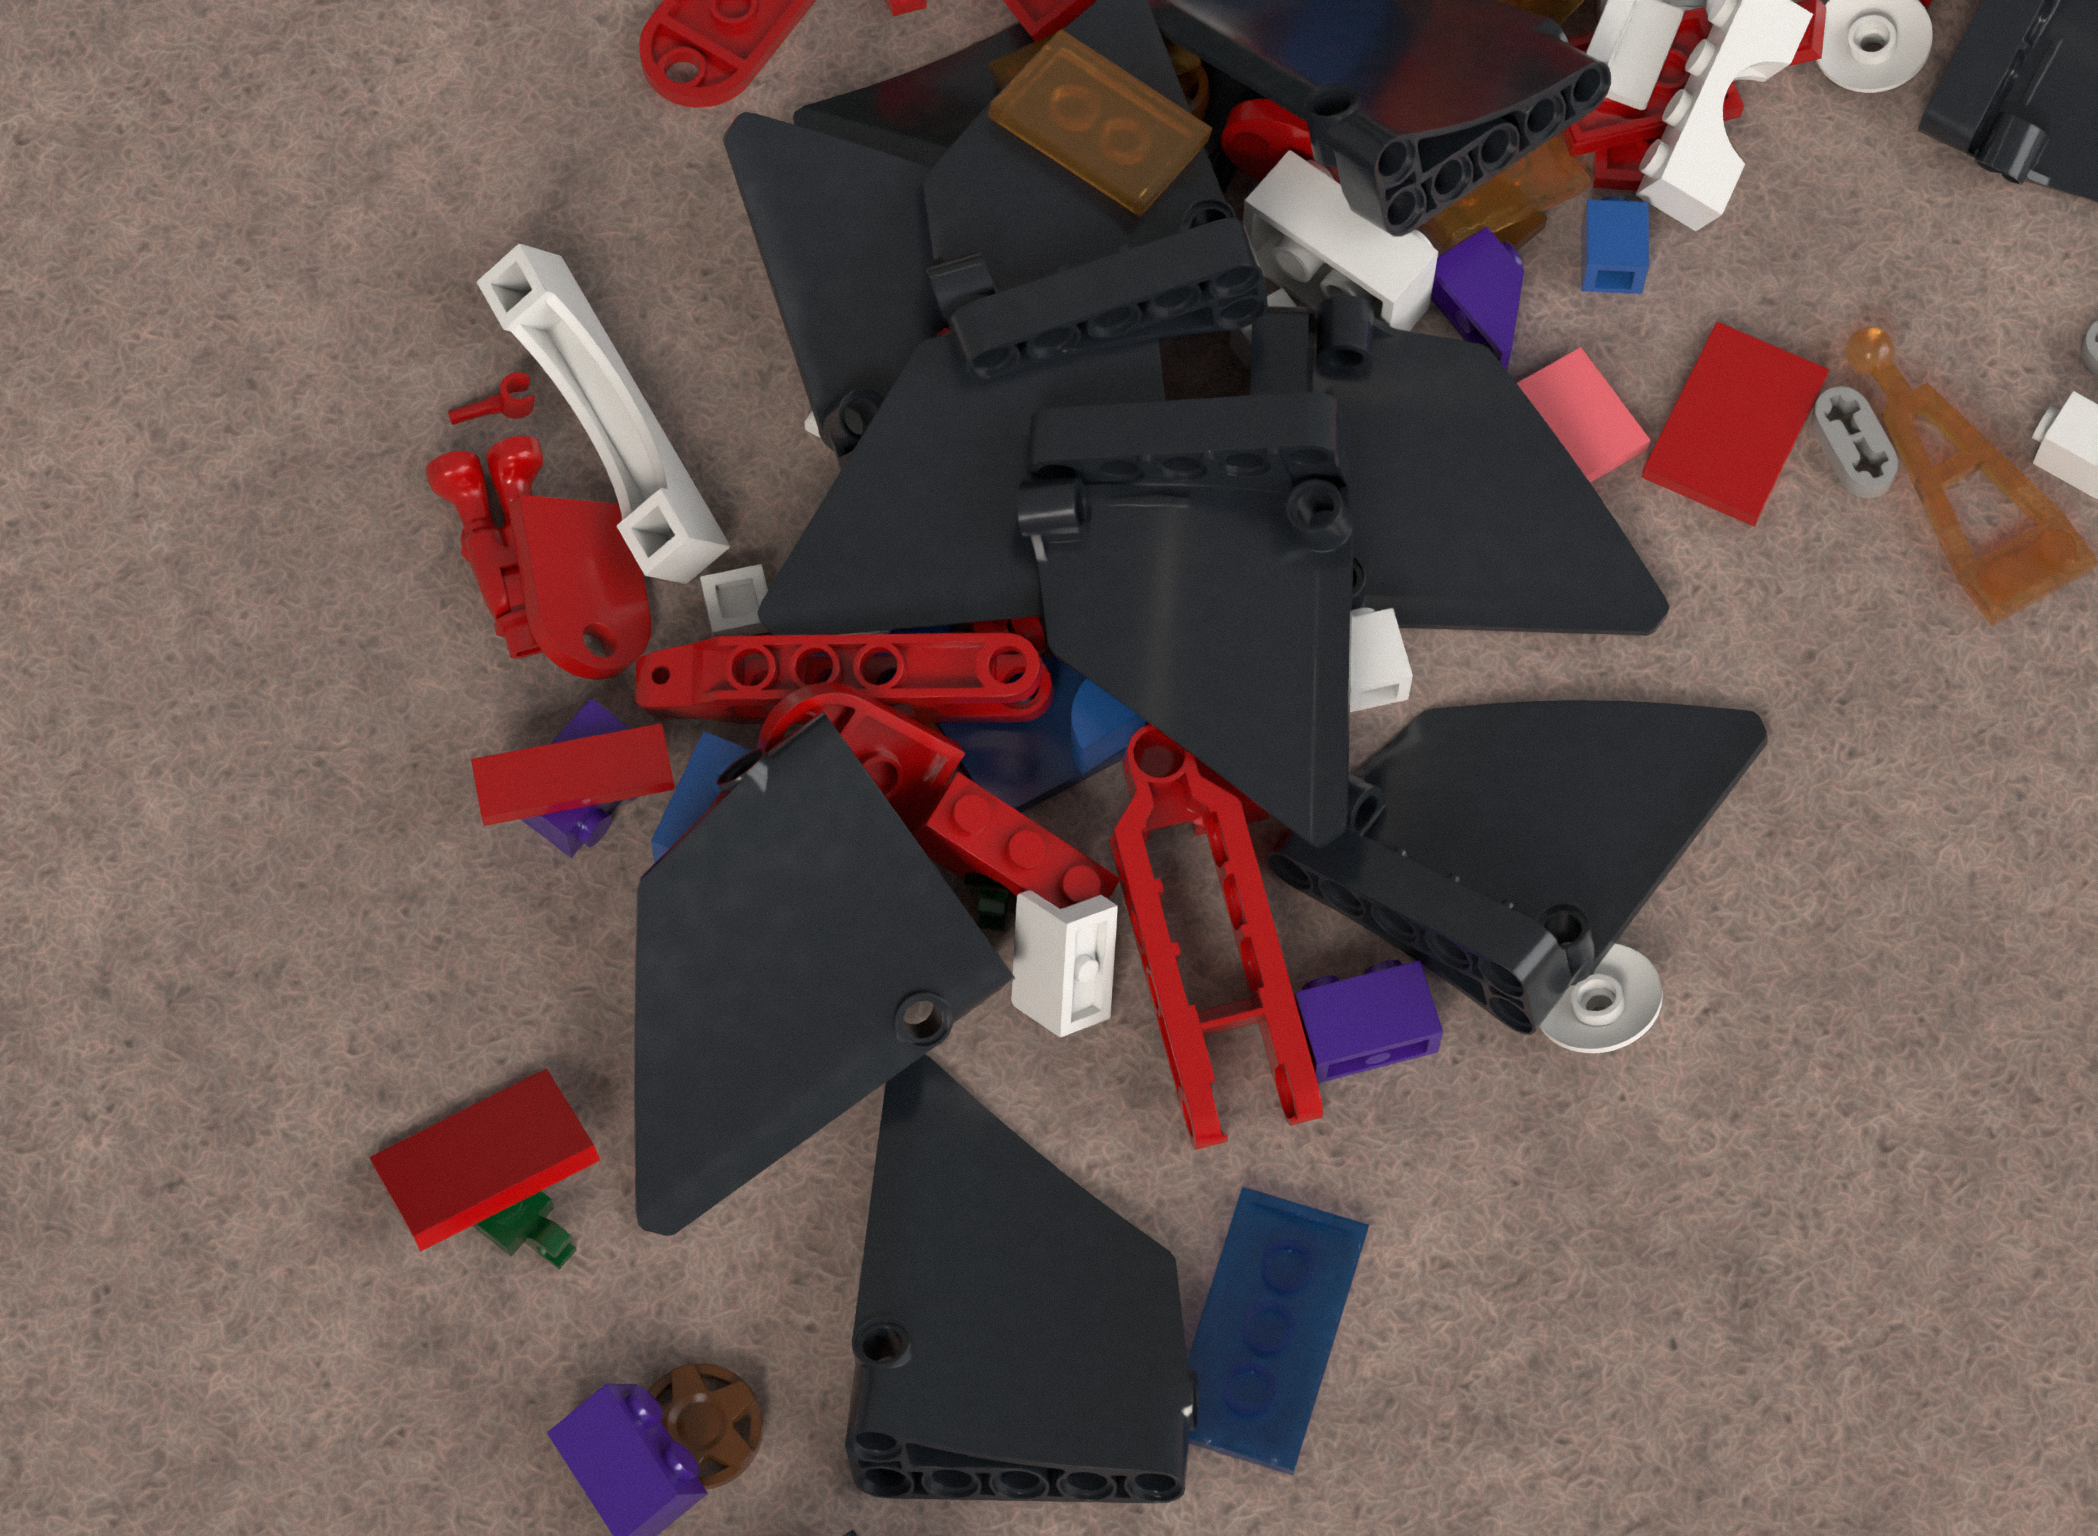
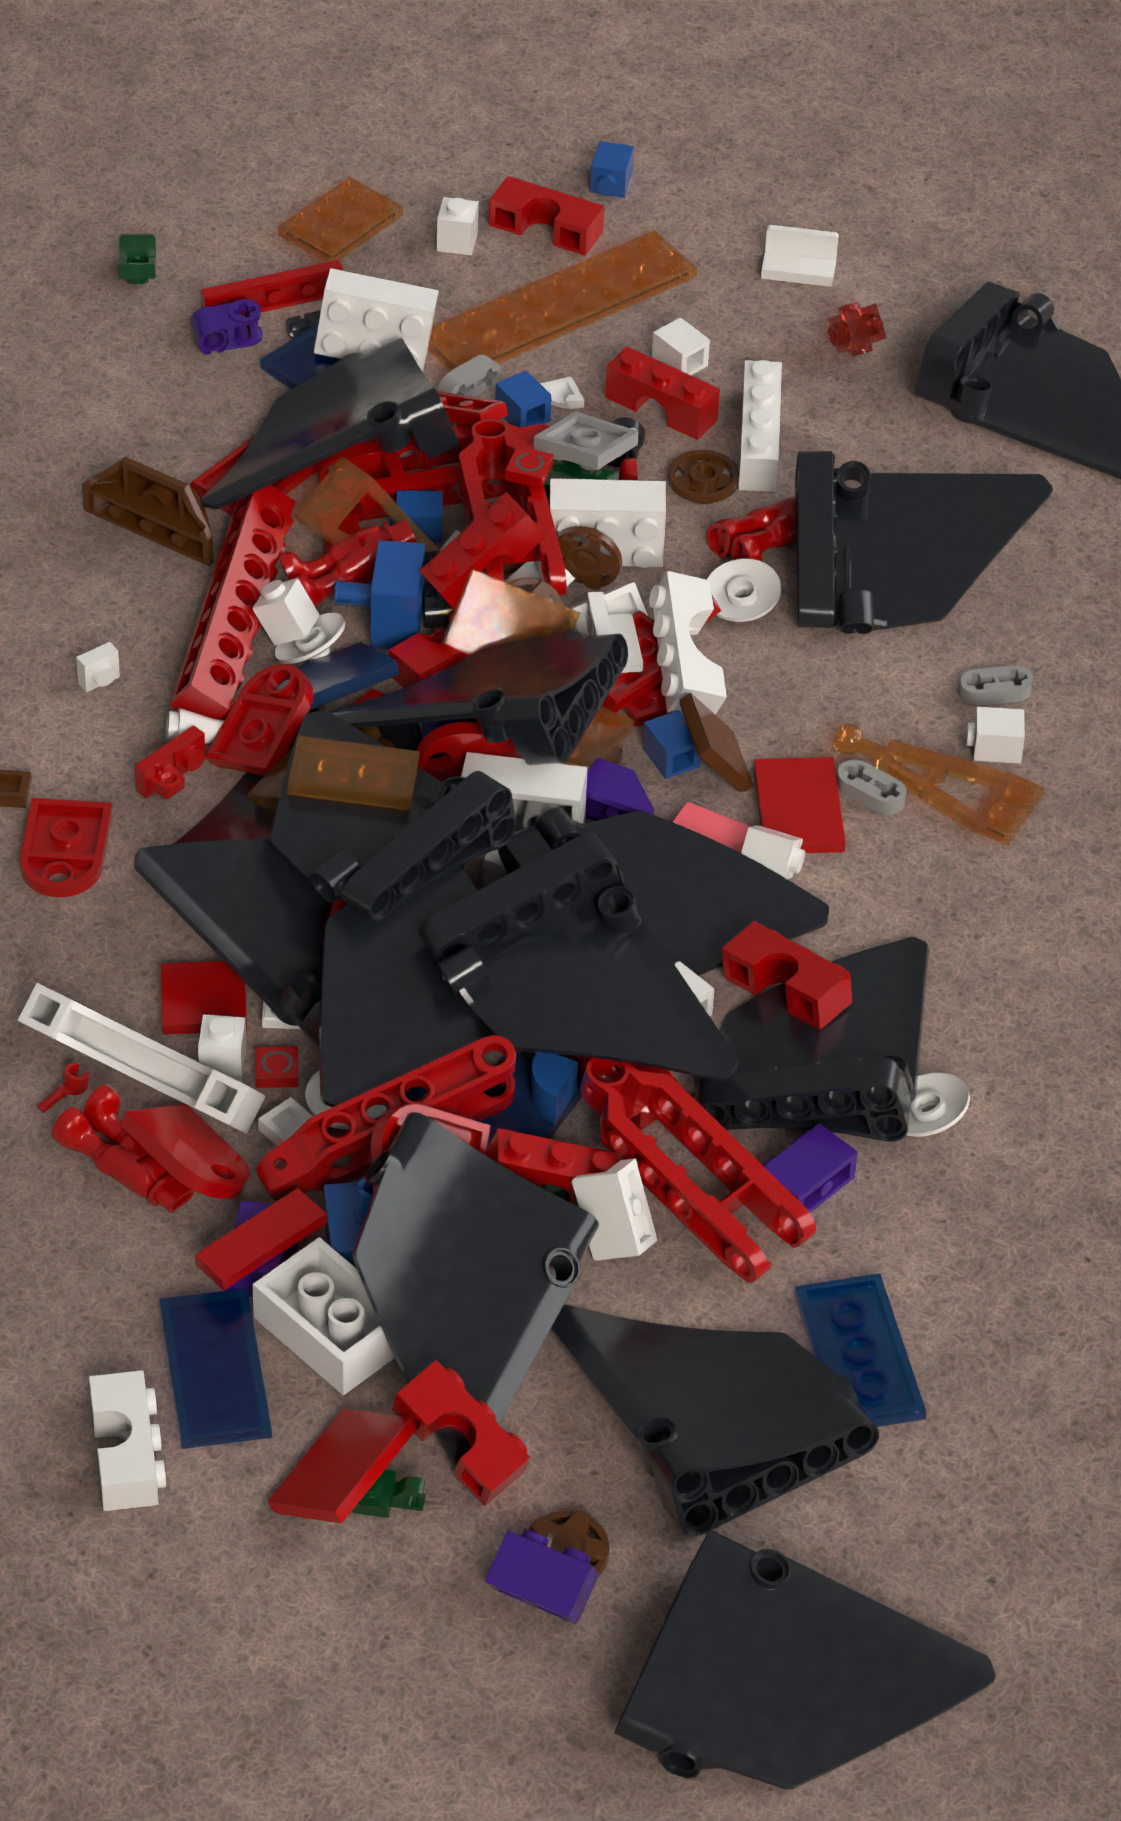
camera: 30 degrees left, 20 degrees down
(229, 1027) = (128, 1470): none -> white arch
(427, 923) = (215, 1368): none -> clear blue tile
(585, 921) = (323, 1315): none -> white brick
(646, 1136) = (439, 1401): none -> red arch
(720, 444) = (223, 1044): none -> white brick
(742, 352) = (199, 990): none -> red tile
(782, 502) = (277, 1067): none -> red tile
(1515, 655) = (814, 985): none -> red arch
(1640, 488) = (774, 850): none -> white brick
(1668, 278) = (715, 743): none -> reddish brown tile

